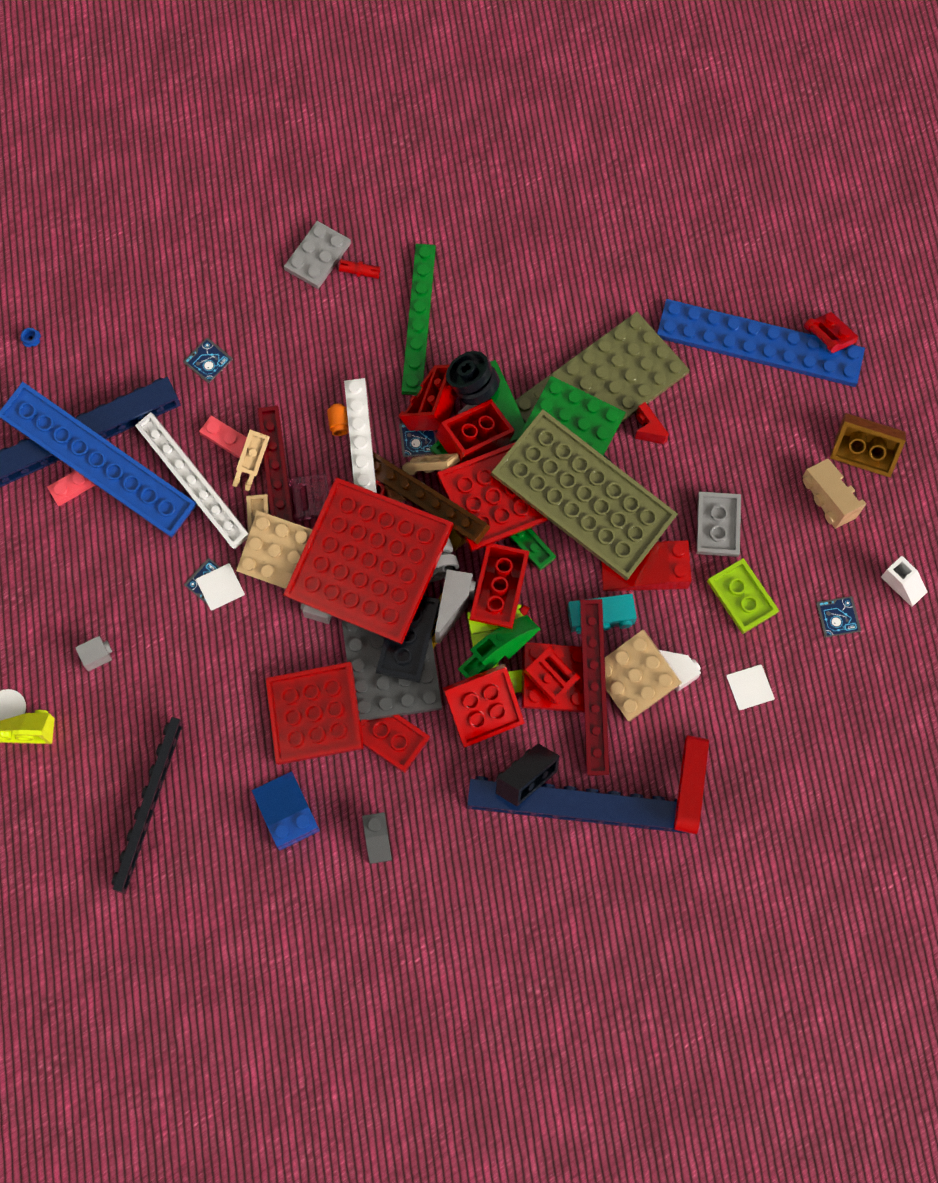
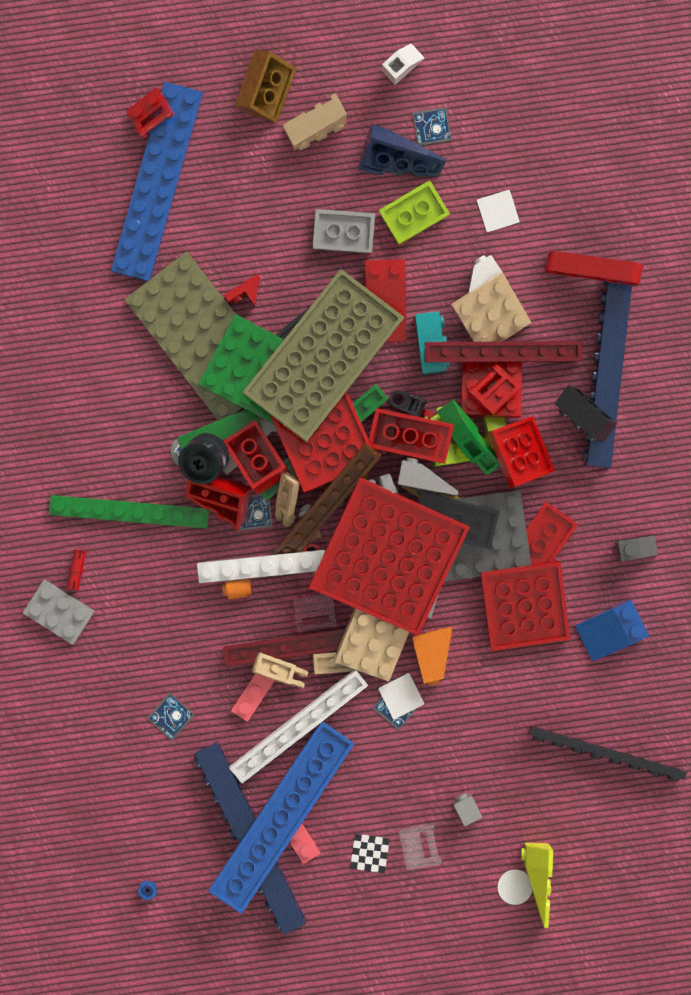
camera: 85 degrees left, 15 degrees up
(54, 556) = (369, 853): none -> sticker
(56, 599) = (413, 847): none -> clear plate
(263, 616) = (432, 654): none -> orange slope
(534, 592) = (409, 403): none -> black piece
(806, 572) = (392, 153): none -> dark blue wedge

